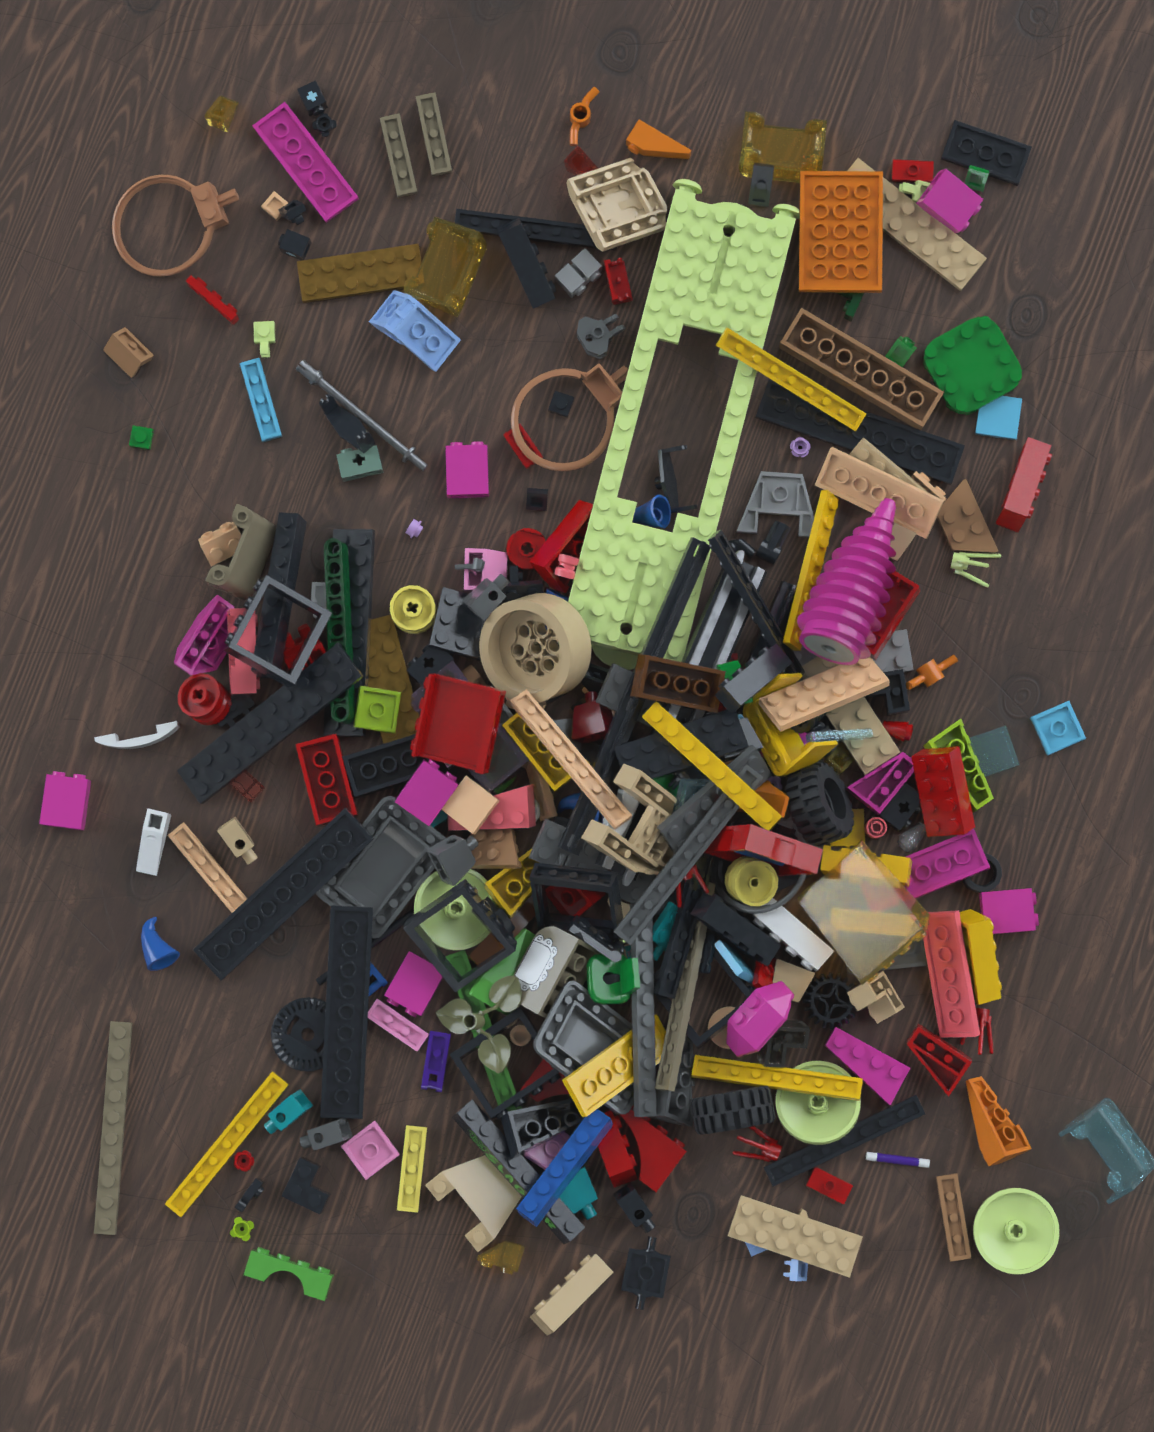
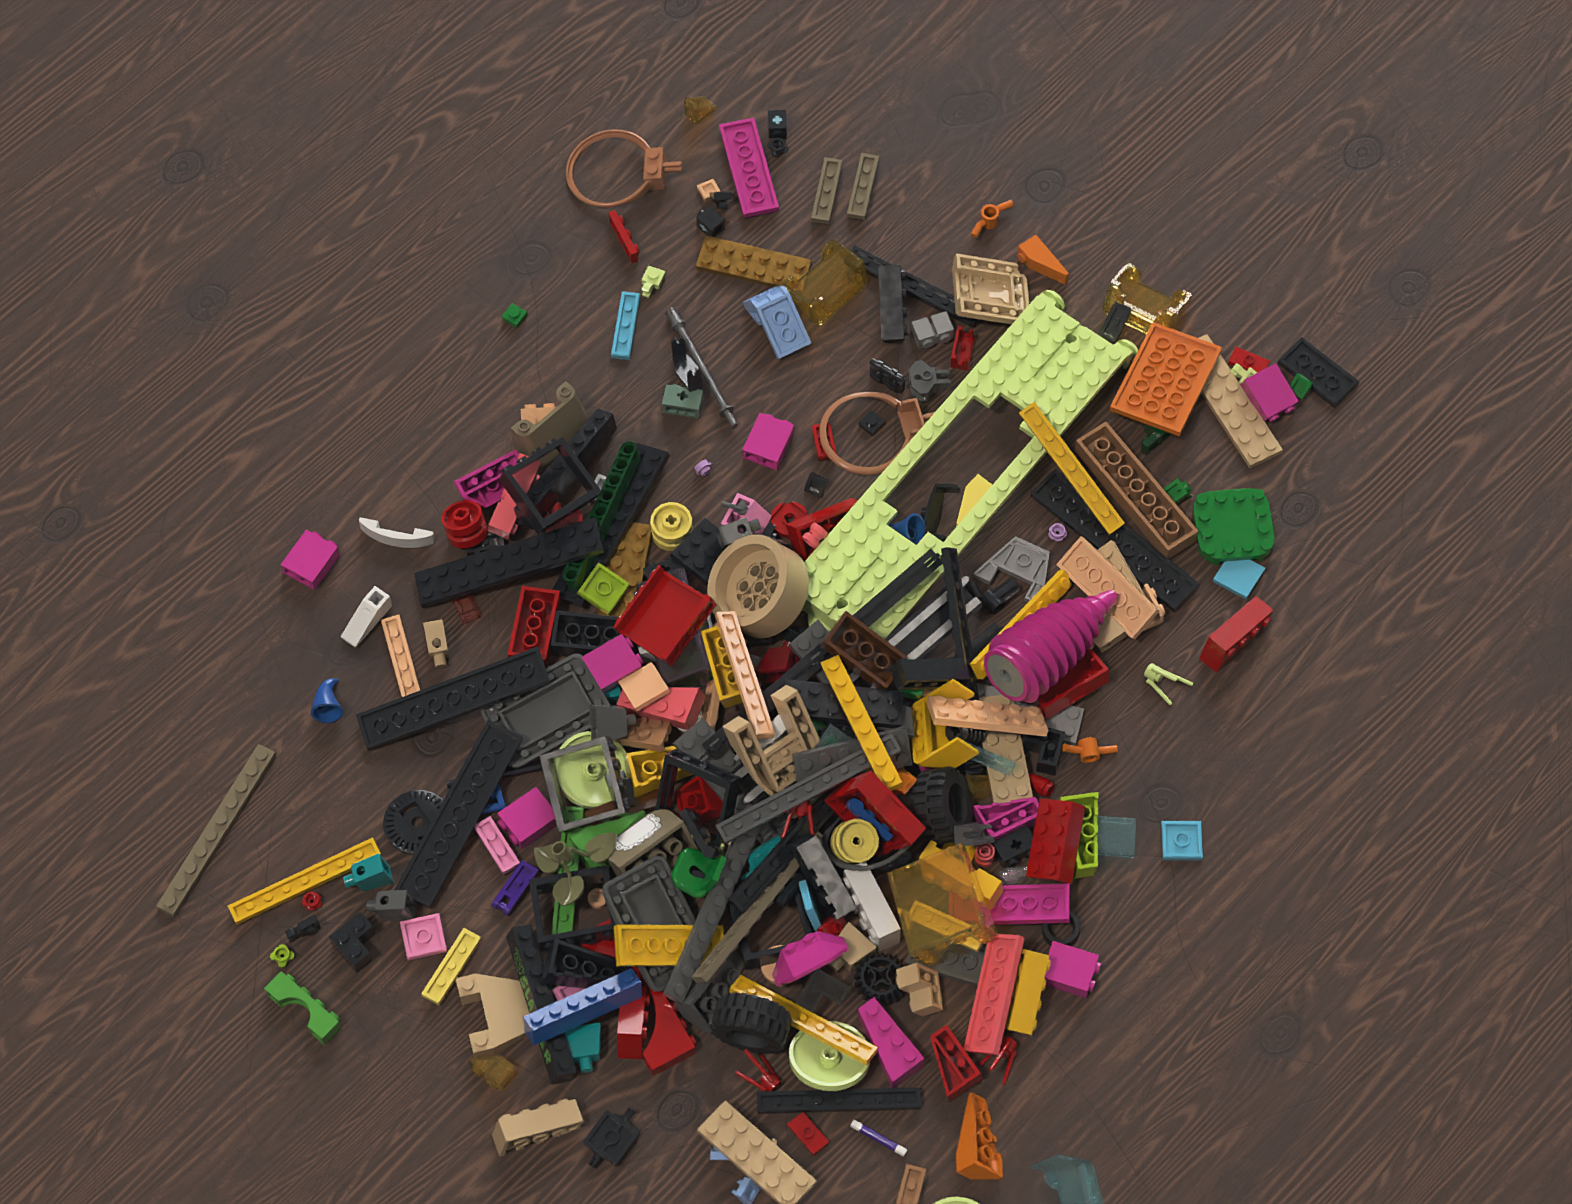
camera: 20 degrees right, 20 degrees down
(127, 351) = (535, 248): medium nougat panel -> none
(549, 346) = (890, 377): none -> black plate
(578, 162) = (971, 246): clear red slope -> none
(630, 1202) = (625, 1069): black torso -> none
(701, 444) = (973, 493): none -> light yellow slope
(862, 823) = (972, 834): none -> dark grey hinge
(964, 522) = (1172, 645): medium nougat wing -> none

